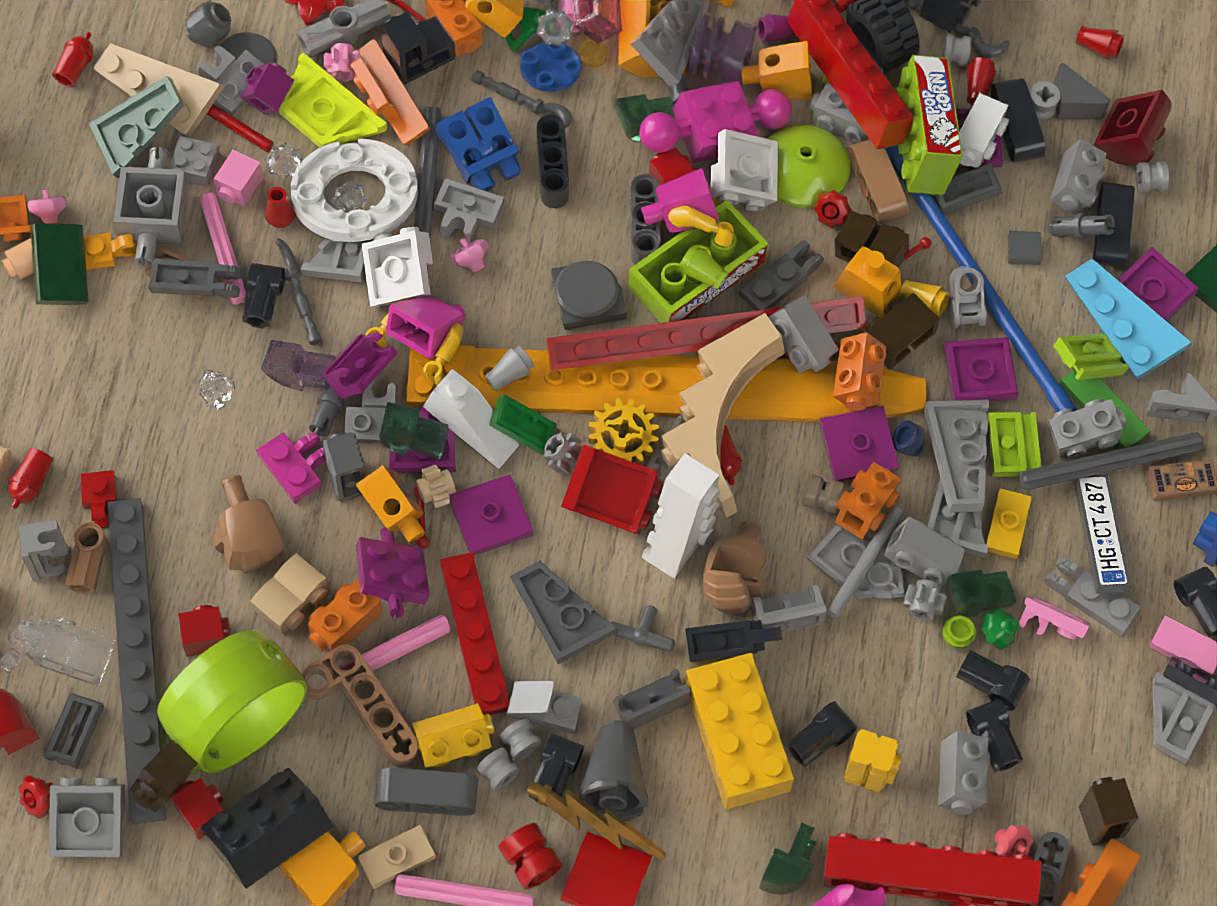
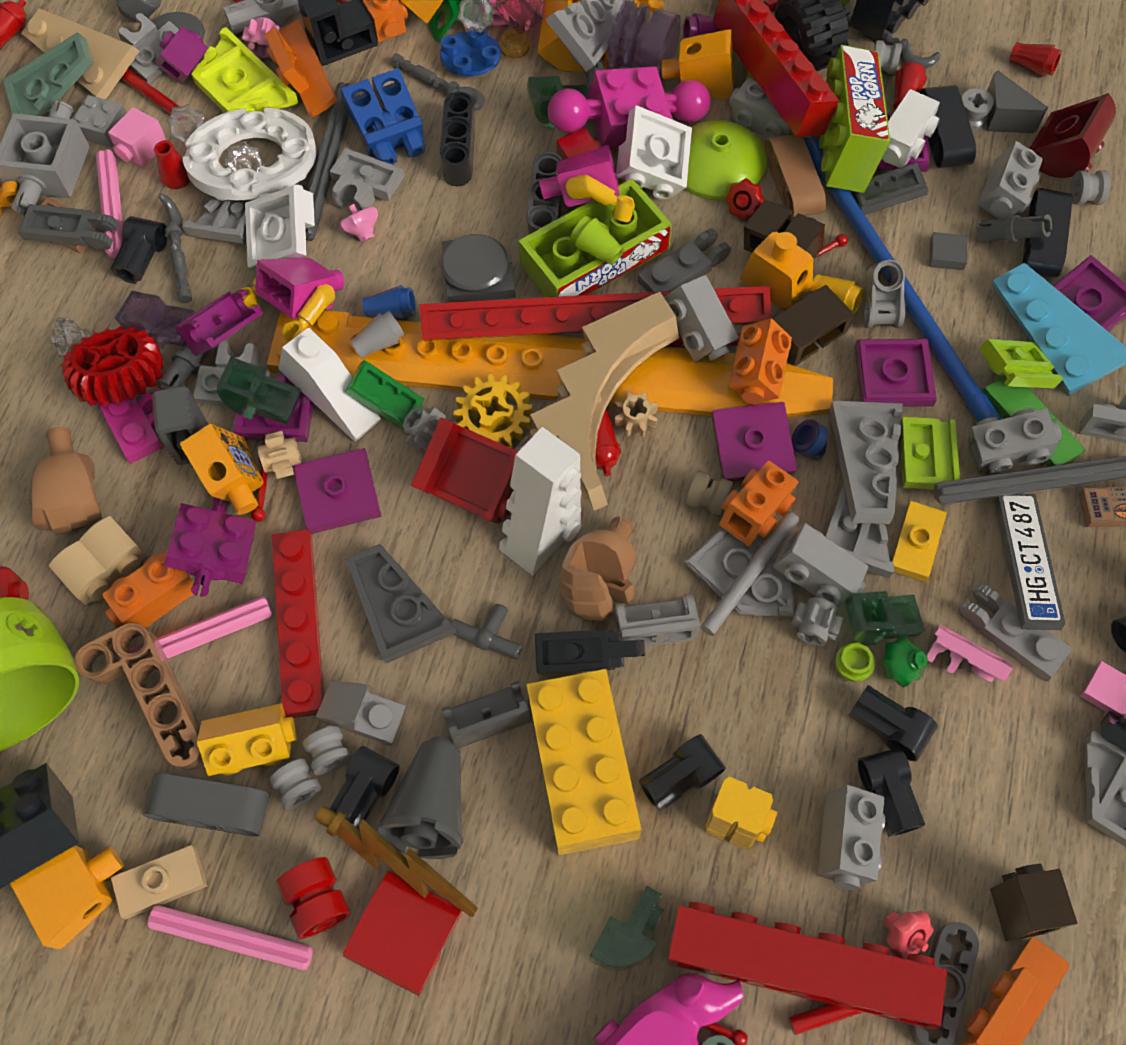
camera: 10 degrees right, 0 degrees up
(268, 413) = (112, 366): none -> red gear
(512, 334) = (397, 300): none -> blue cone
(743, 423) = (628, 409): none -> tan gear

